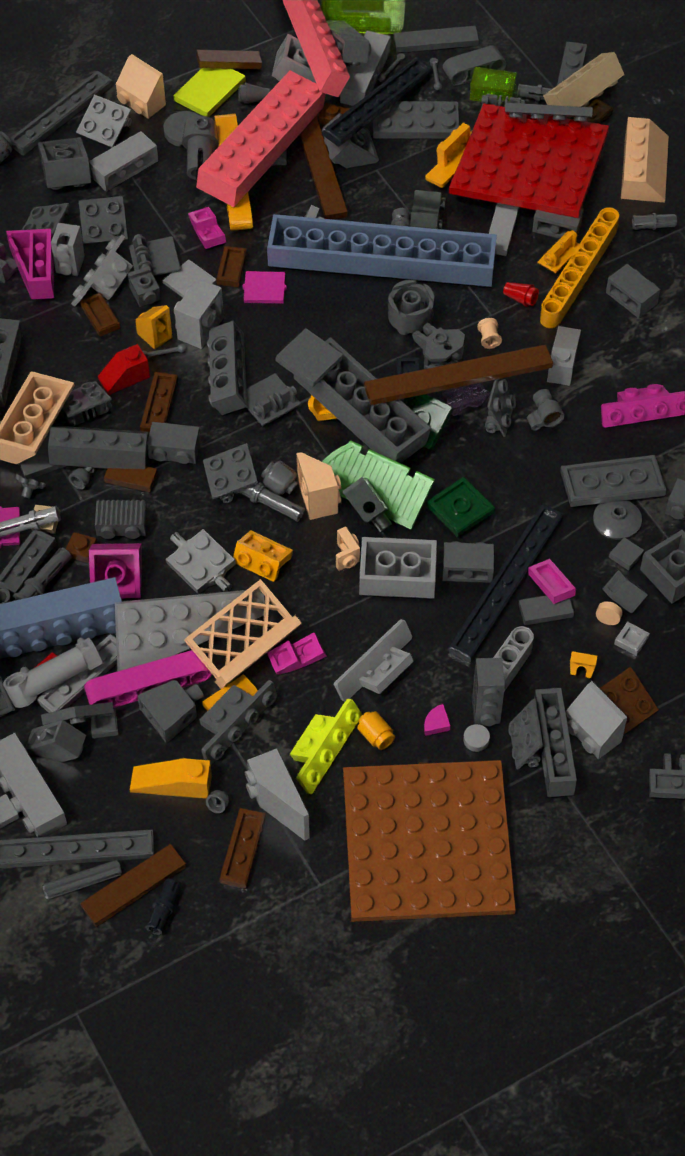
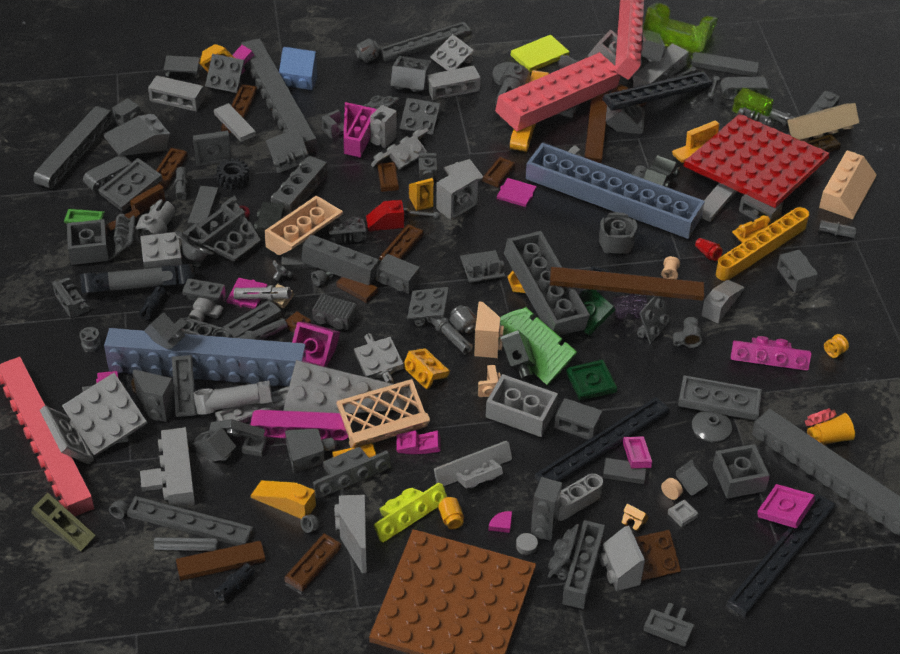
camera: 20 degrees right, 10 degrees down
(141, 87) = (488, 38): light nougat slope -> none
(157, 254) = (446, 149): dark grey hinge -> none
(206, 227) = (493, 142): dark pink slope -> none
(227, 368) = (460, 235): dark grey brick -> none
(229, 59) = (562, 37): reddish brown tile -> none
(309, 357) = (517, 238): dark grey tile -> none
(417, 120) = (682, 112): dark grey plate -> none
(440, 345) = (628, 263): dark grey hinge -> none
(538, 111) = (790, 131): dark grey plate -> none
(626, 553) = (705, 451): dark grey tile -> none

